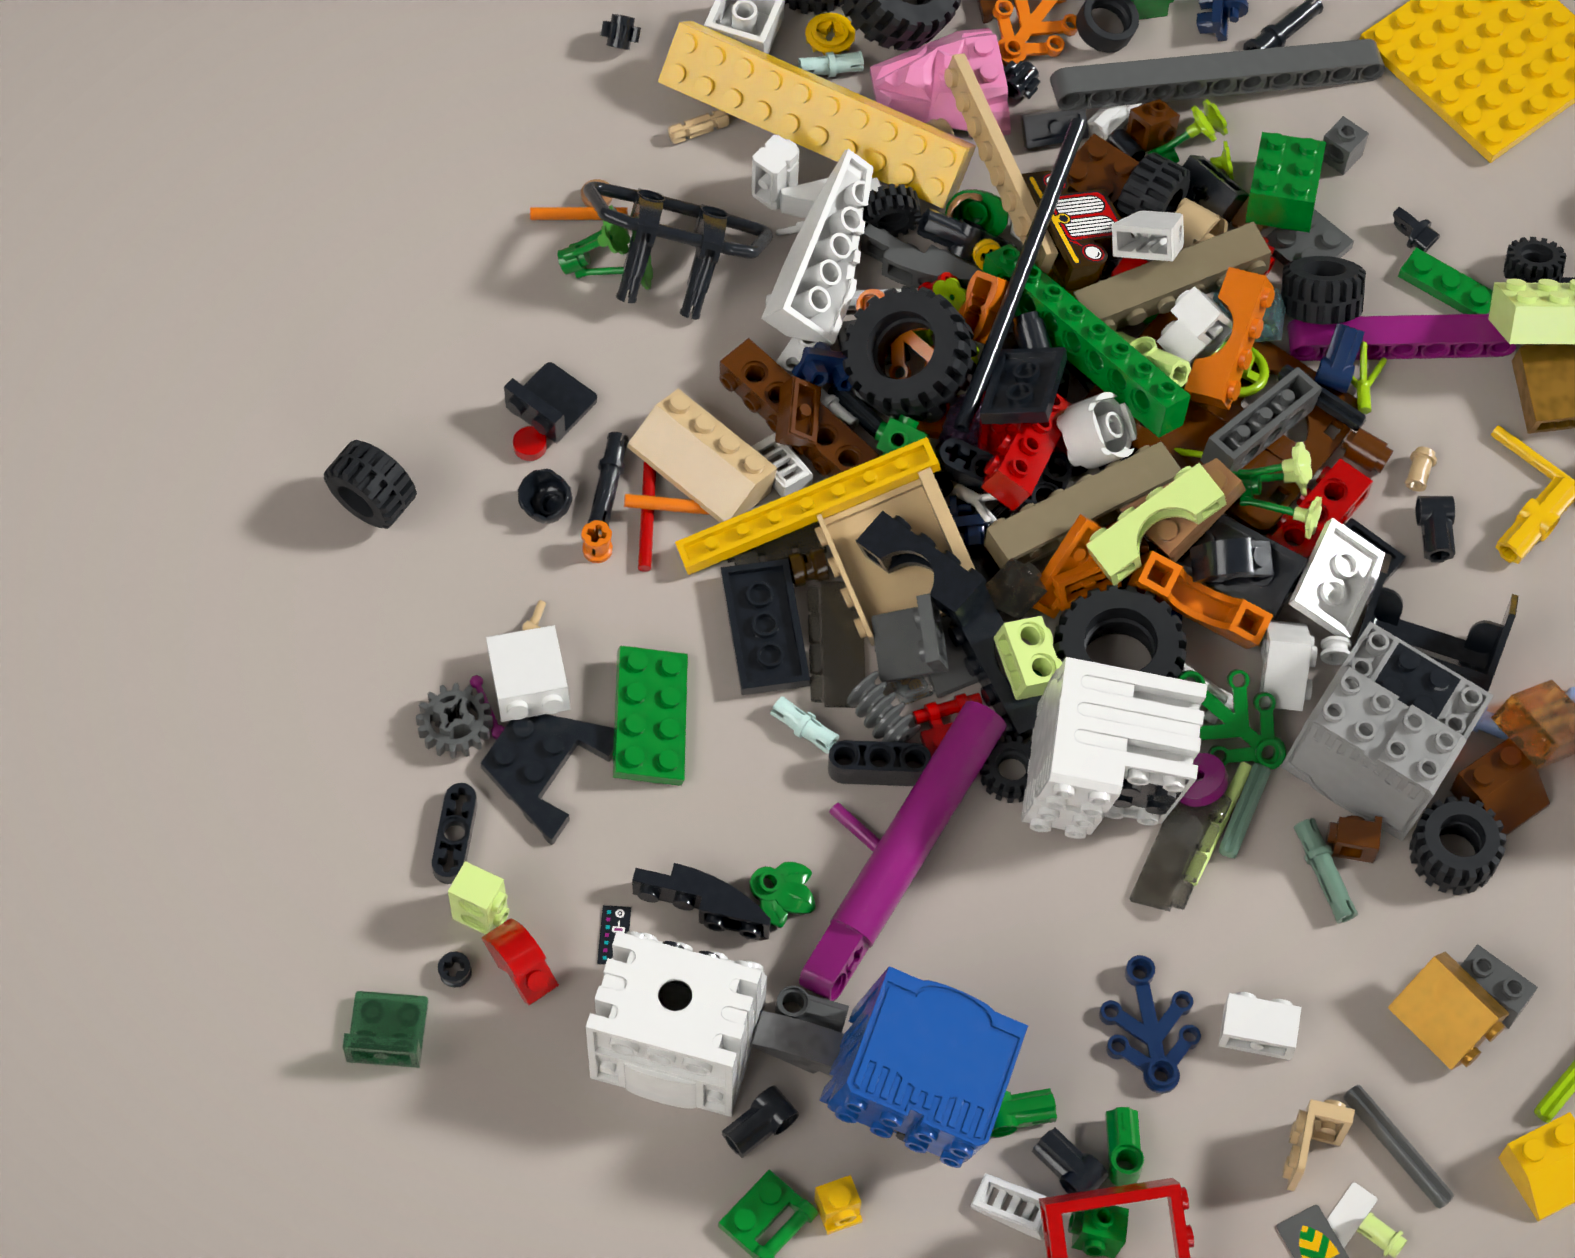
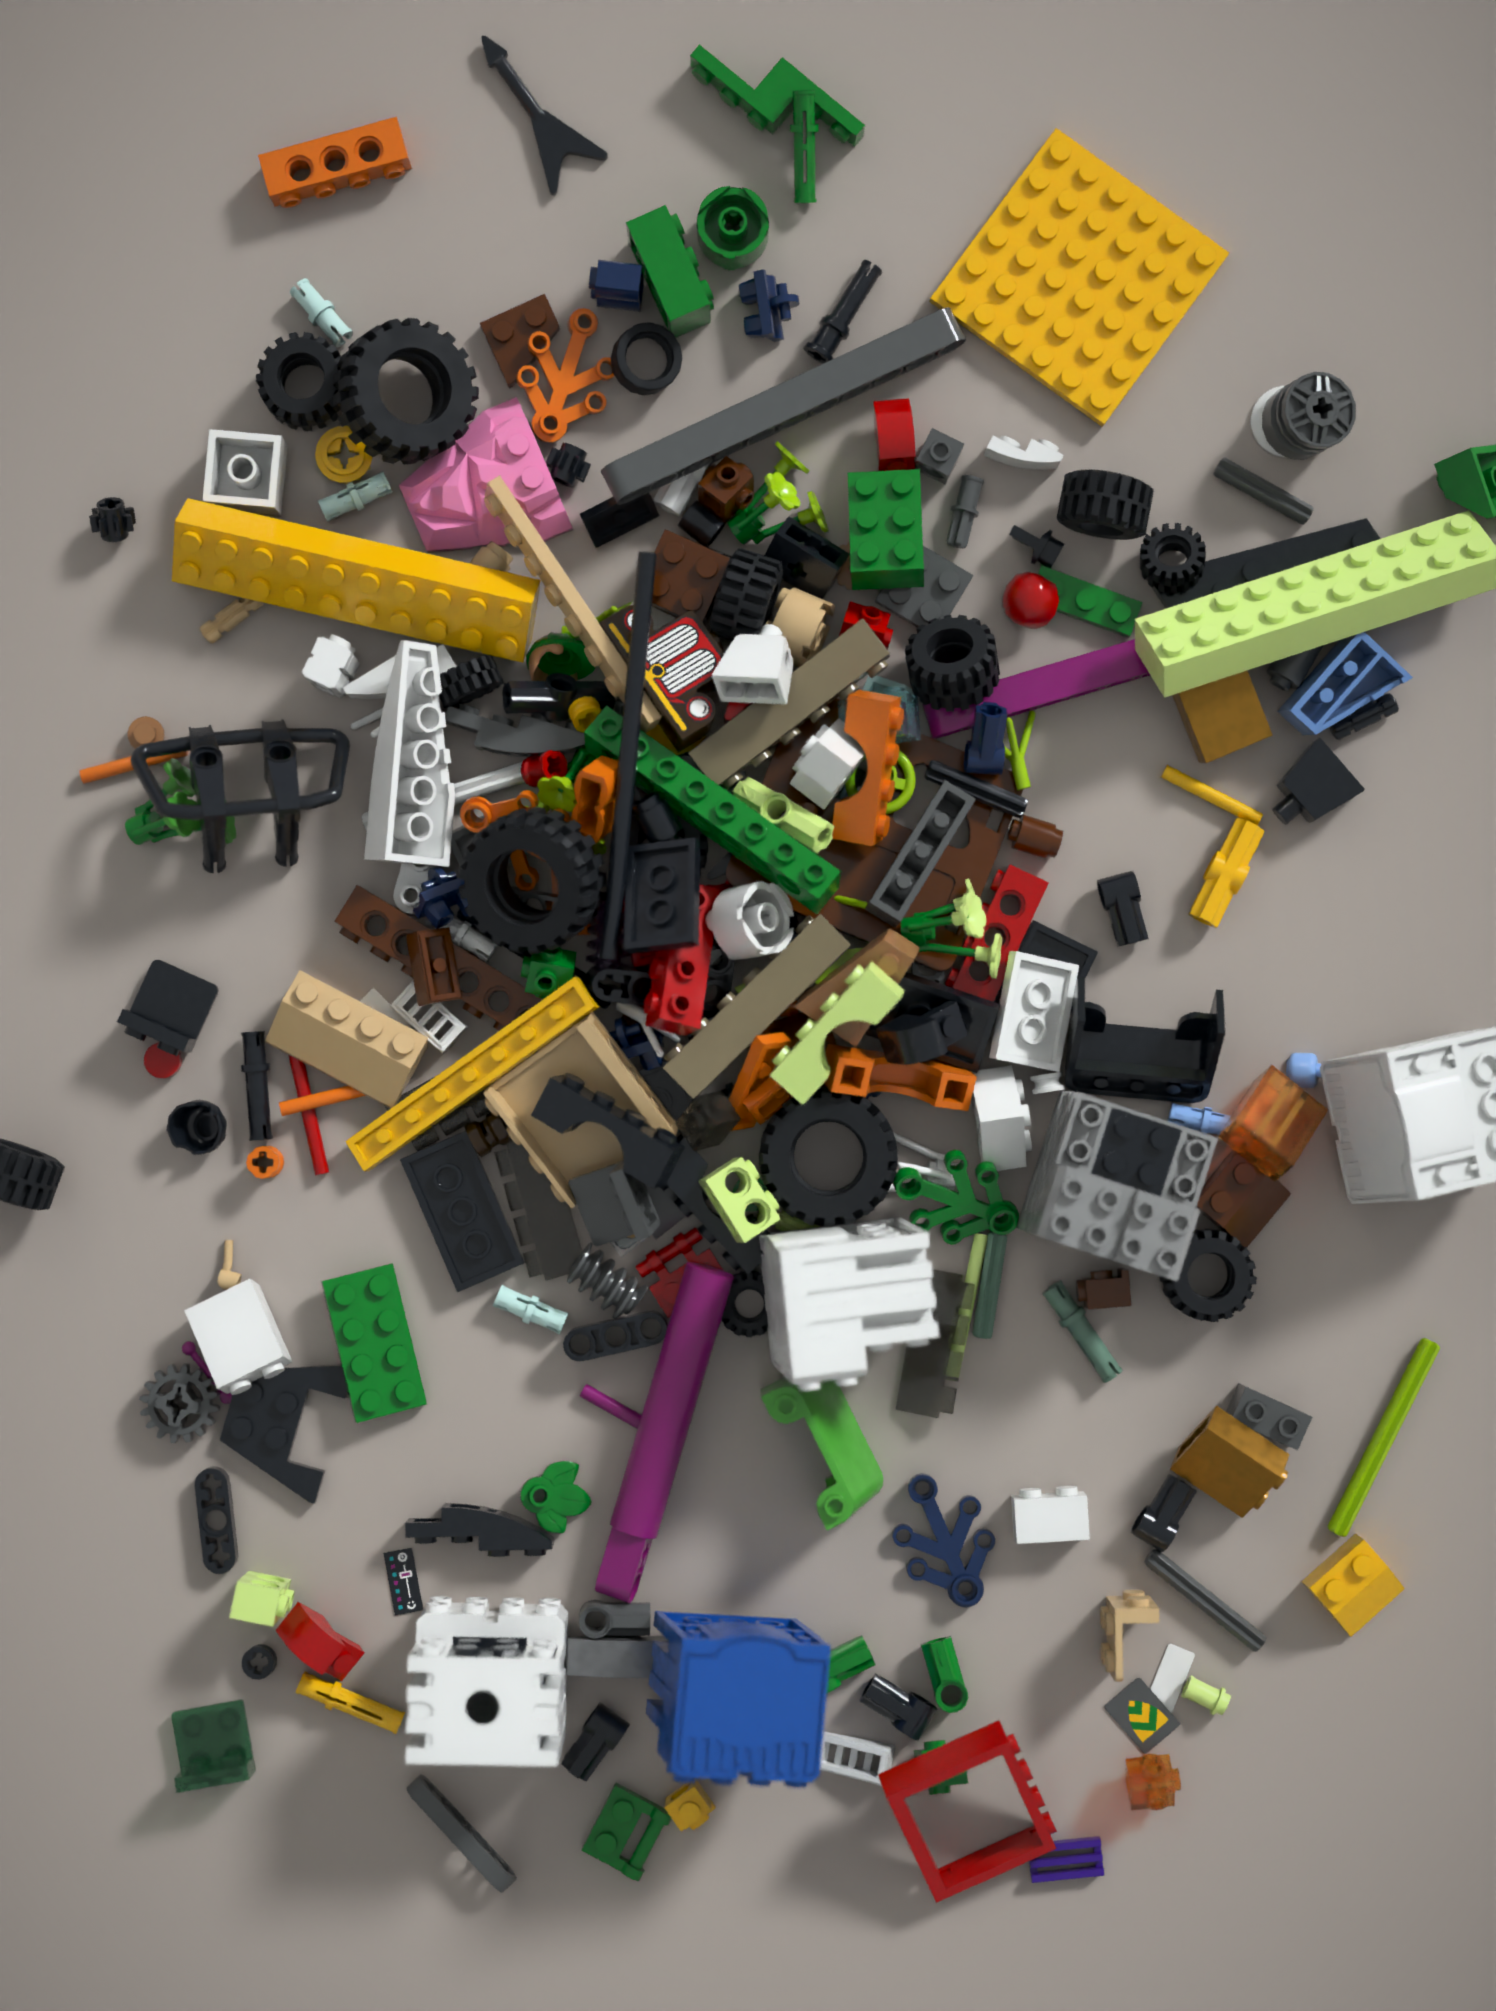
camera: 15 degrees left, 25 degrees up
(518, 1016) = (349, 1702): none -> yellow pin
(604, 1174) = (461, 1833): none -> dark grey beam
(1071, 933) = (852, 1464): none -> bright green windscreen
(1211, 786) = (954, 1269): magenta piece -> none
(1308, 117) = (894, 434): none -> red brick
(1356, 193) = (964, 511): none -> dark grey axle
(1367, 1058) = (1159, 1521): none -> black piece
(1401, 268) = (1030, 600): none -> red hair
(1422, 461) = (1094, 841): tan pin -> none
(1424, 166) = (1038, 455): none -> white slope
(1483, 204) = (1105, 504): none -> black tyre

